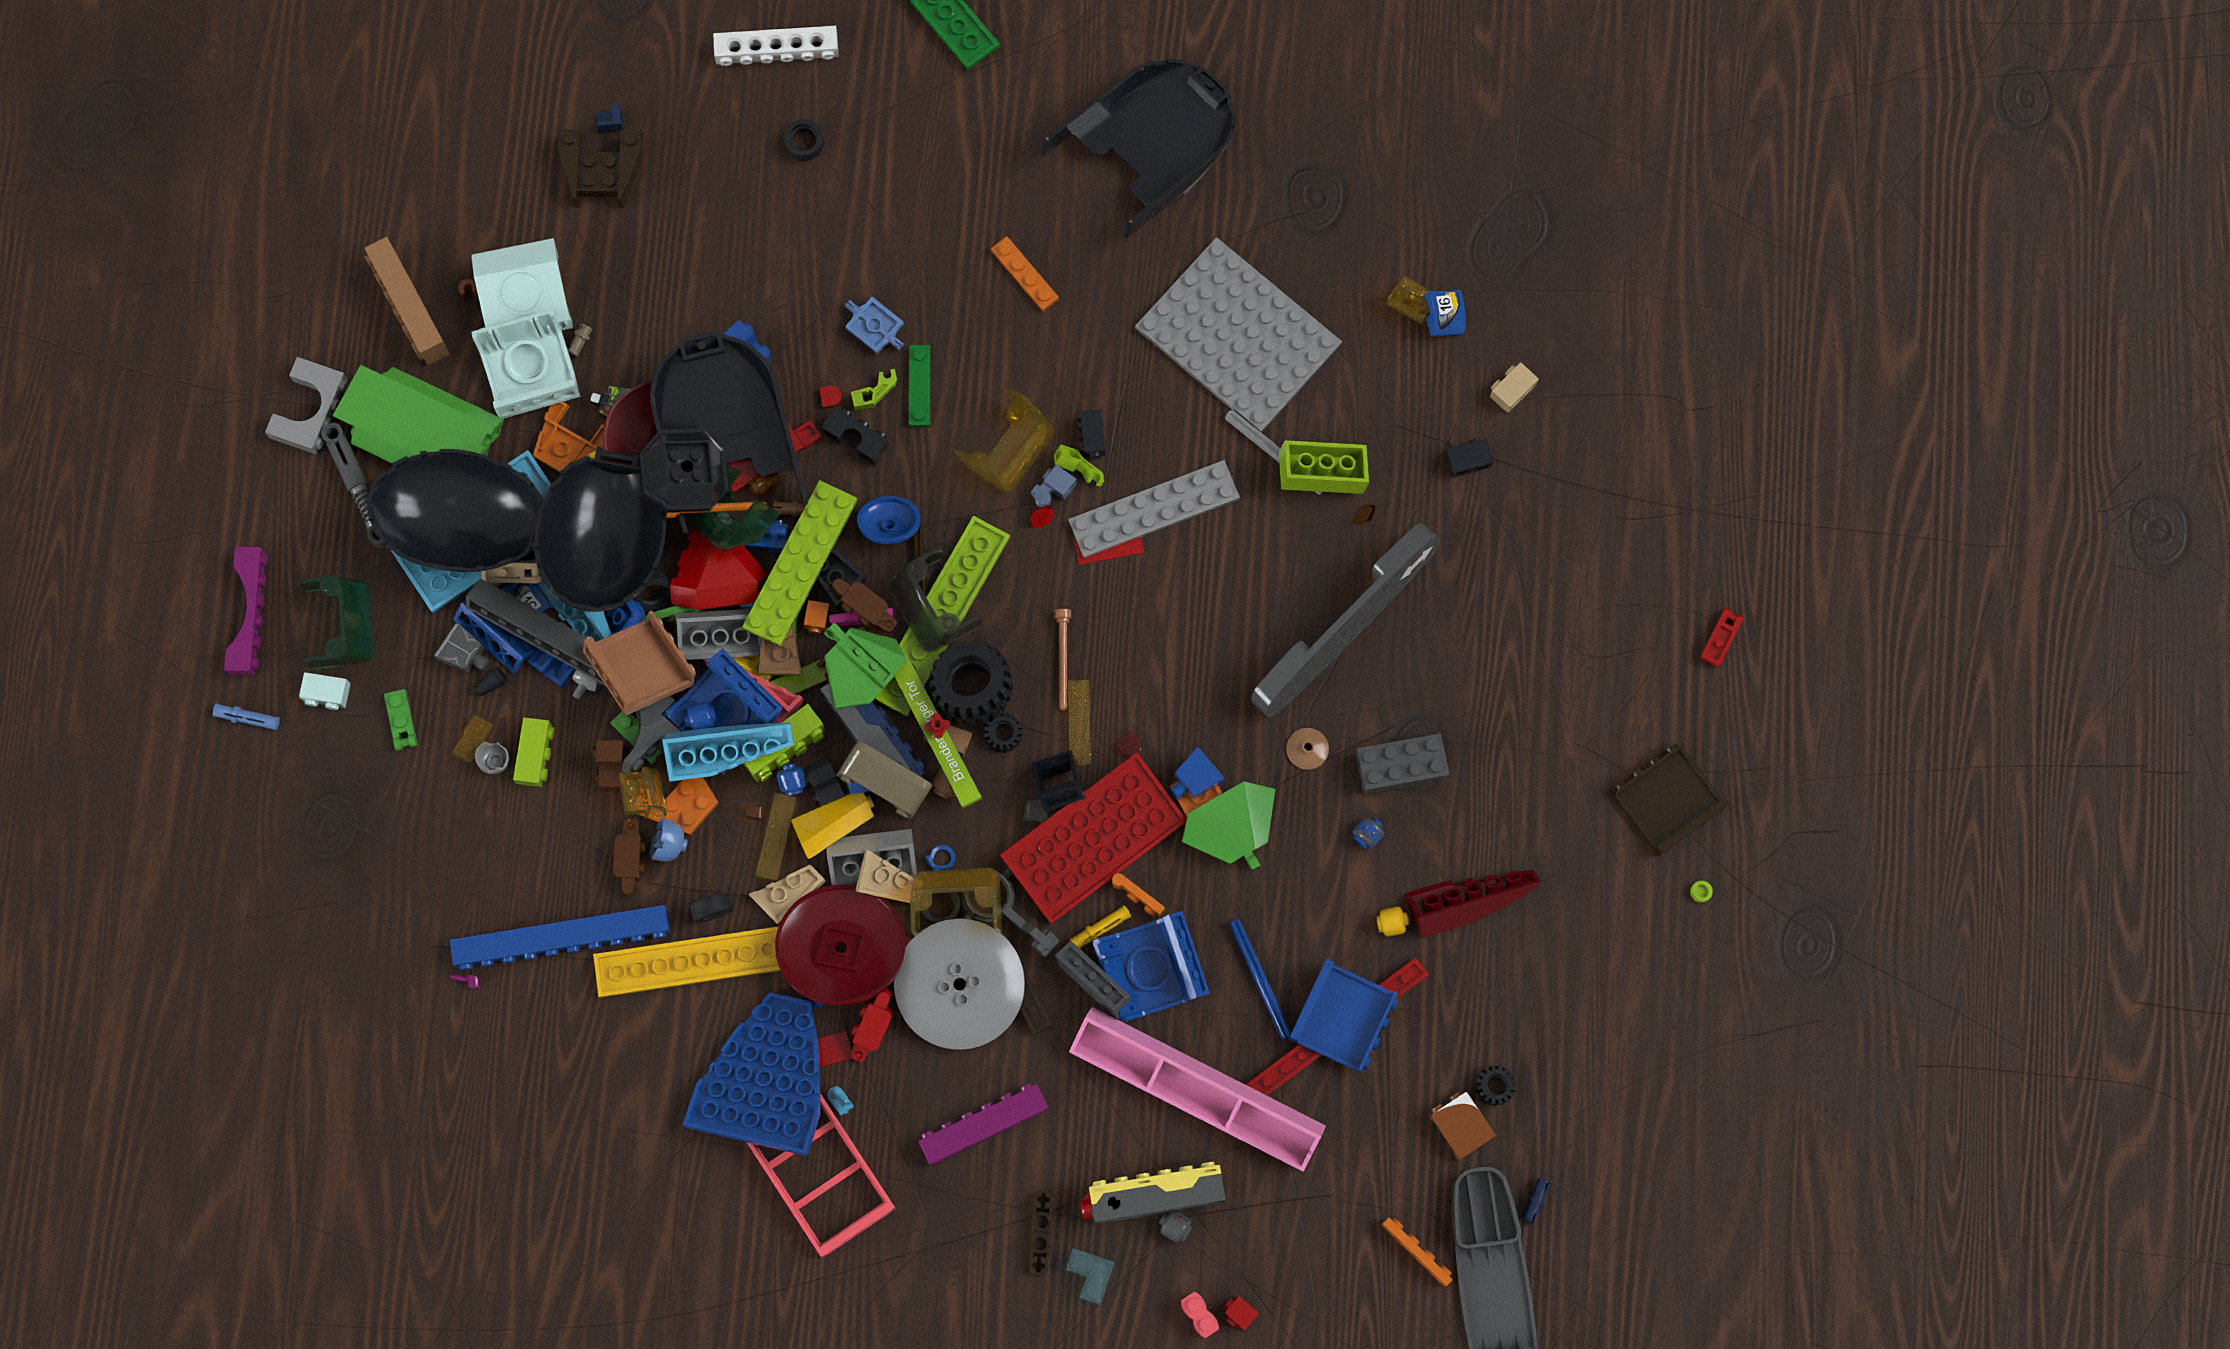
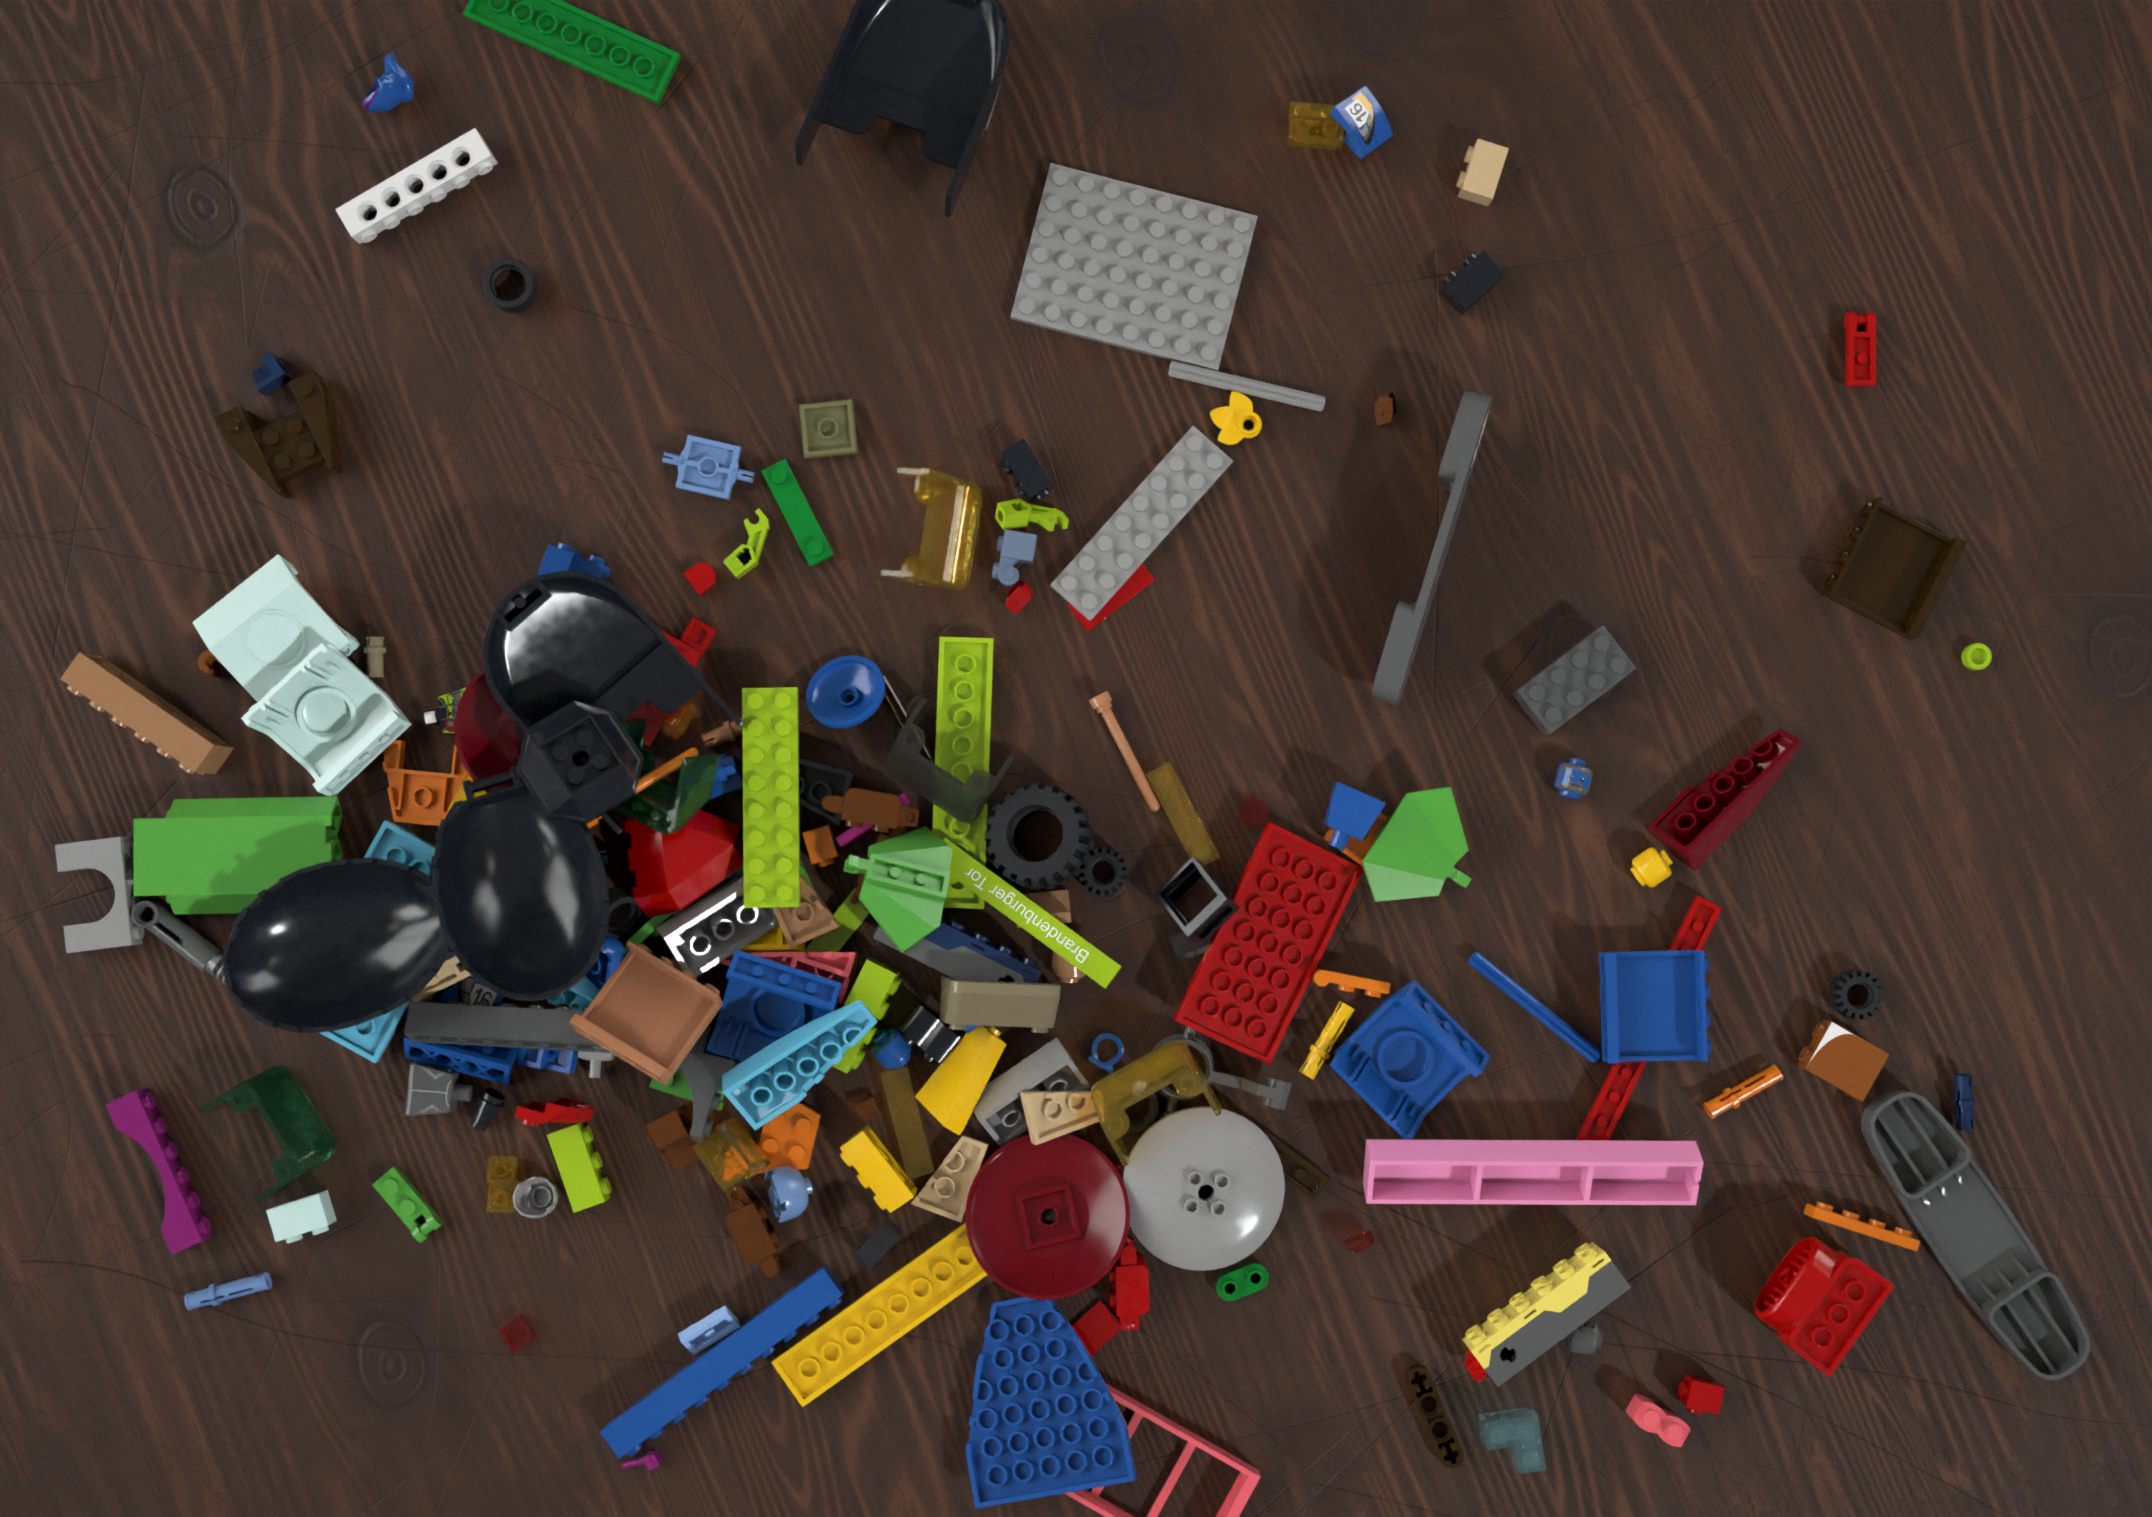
camera: 25 degrees left, 10 degrees up
(427, 847) = (516, 1333): none -> clear red tile
(537, 704) = (556, 1111): none -> red plate
(561, 910) = (709, 1330): none -> light blue plate
(700, 716) = (750, 1035): blue head -> none
(738, 857) = (878, 1169): none -> yellow slope
(839, 1100) = (1133, 1383): medium azure piece -> none
(841, 424) = (731, 605): black arch -> none
(937, 731) = (1032, 915): red plate -> none
(953, 1068) = (1241, 1279): none -> green plate
(970, 340) = (828, 429): none -> olive tile
(984, 1124) = (1309, 1330): magenta brick -> none
(1024, 274) = (850, 318): orange plate -> none
(1051, 1080) = (1359, 1241): none -> clear red tile
(1092, 979) = (1352, 1107): dark grey panel -> none
(1254, 469) = (1232, 417): none -> yellow plate
(1307, 759) = (1441, 717): medium nougat dish -> none
(1323, 467) = (1315, 378): lime brick -> none
(1357, 1281) = (1820, 1302): none -> red brick
(1379, 1113) = (1733, 1097): none -> orange pin

